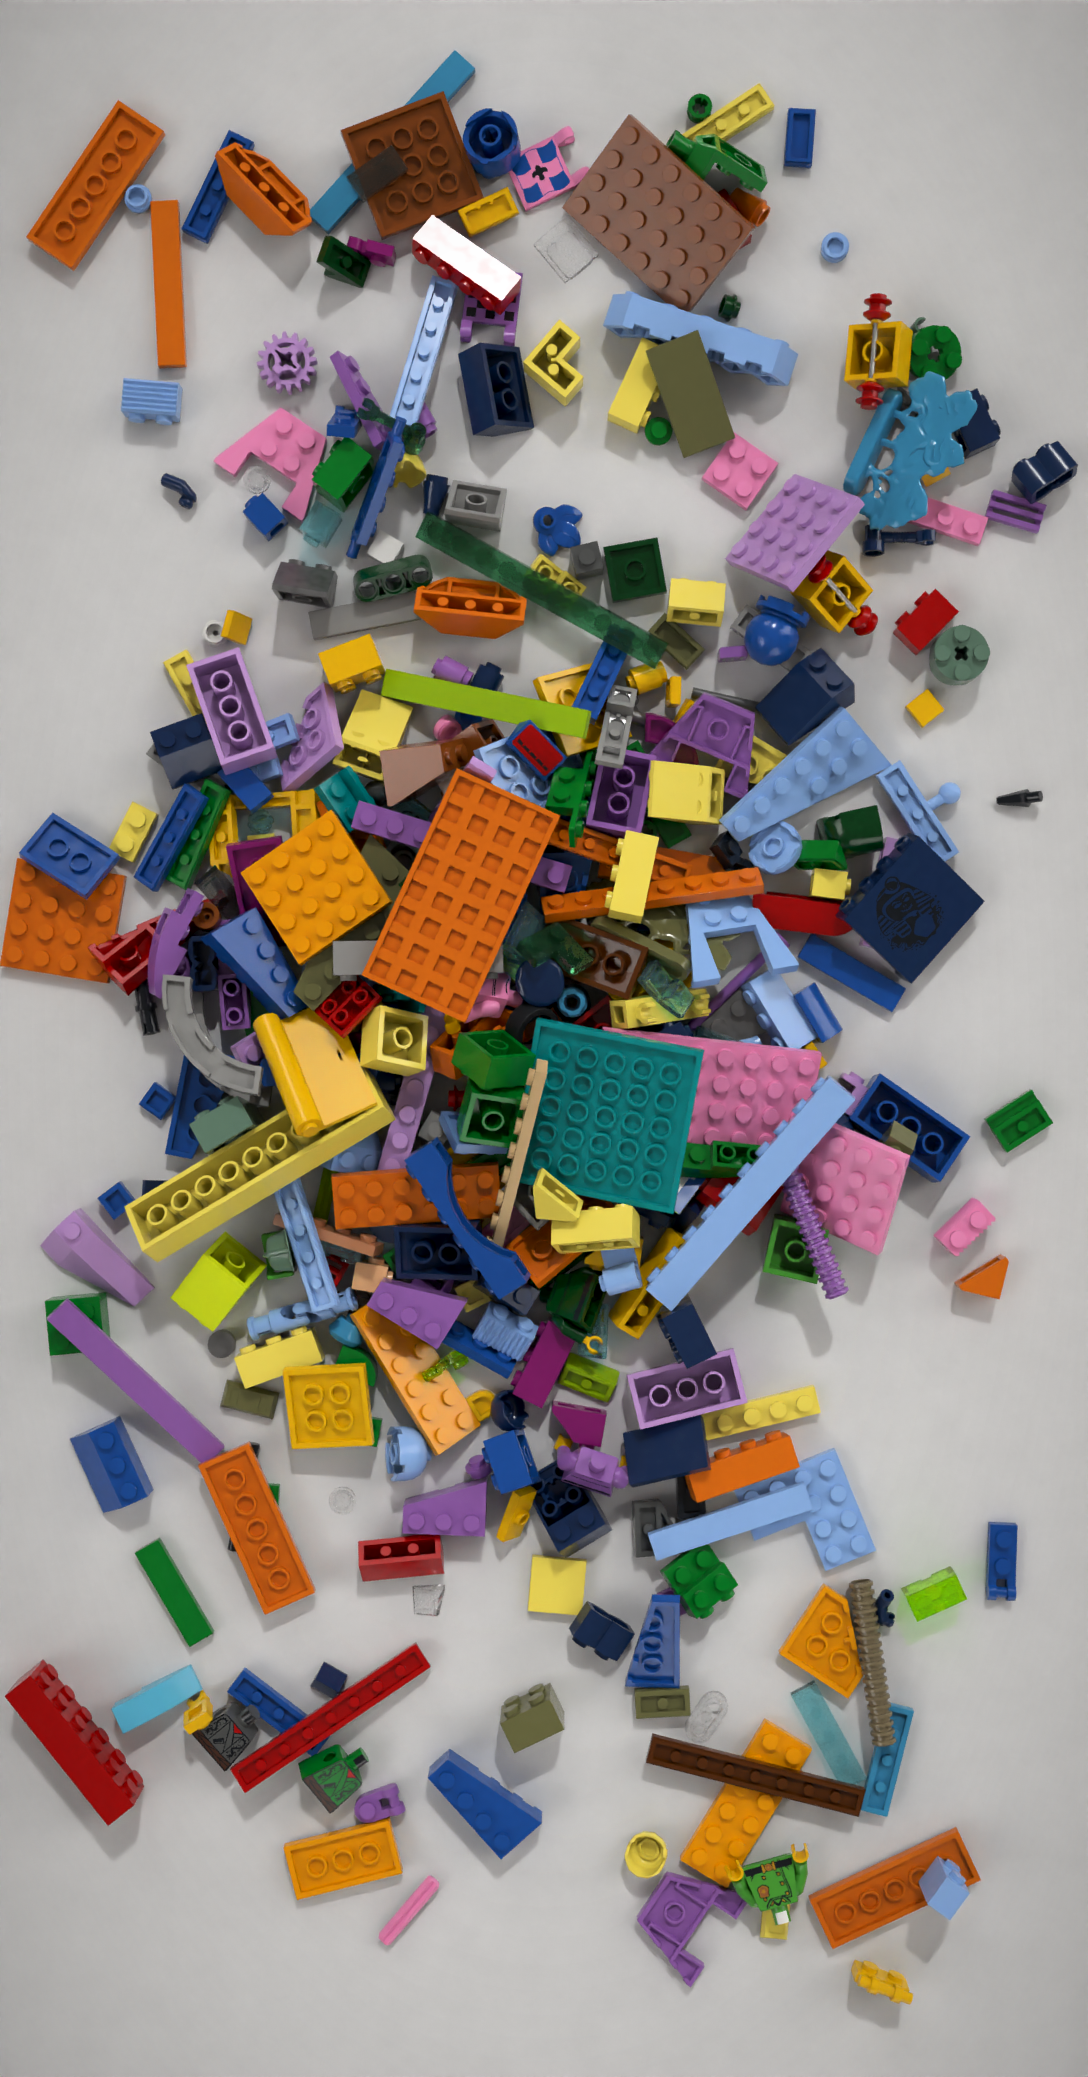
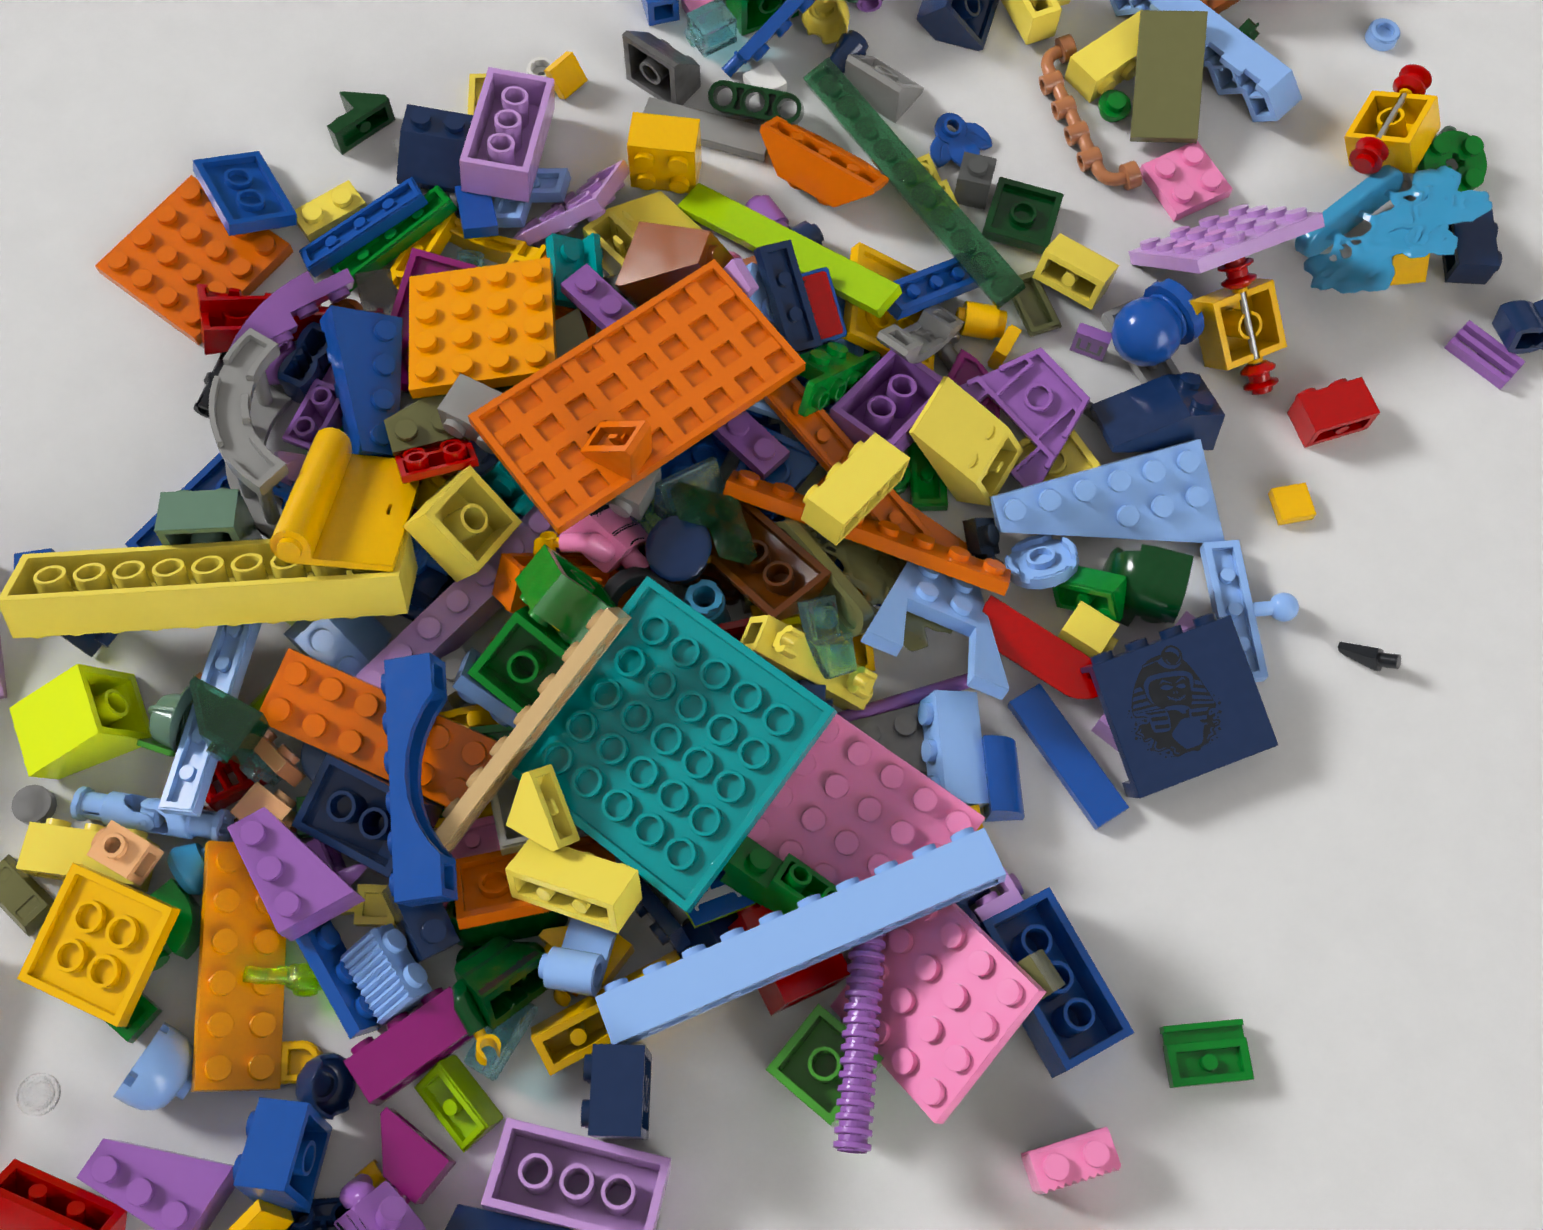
camera: 20 degrees right, 20 degrees down
(112, 741) = (363, 118): none -> dark green slope
(158, 1100) = (159, 481): blue tile -> none
(308, 1348) = (124, 852): none -> light nougat brick
(324, 1245) = (226, 723): none -> clear green slope
(472, 948) = (620, 446): none -> orange slope
(478, 1467) = (233, 1143): medium lavender plate -> none
(516, 759) = (787, 295): none -> dark blue plate
(623, 454) = (1078, 130): none -> nougat bar
(875, 539) = (1309, 307): dark blue brick -> none
(948, 644) = (1359, 462): sand green brick -> none
(953, 522) = (1399, 326): bright pink plate -> none

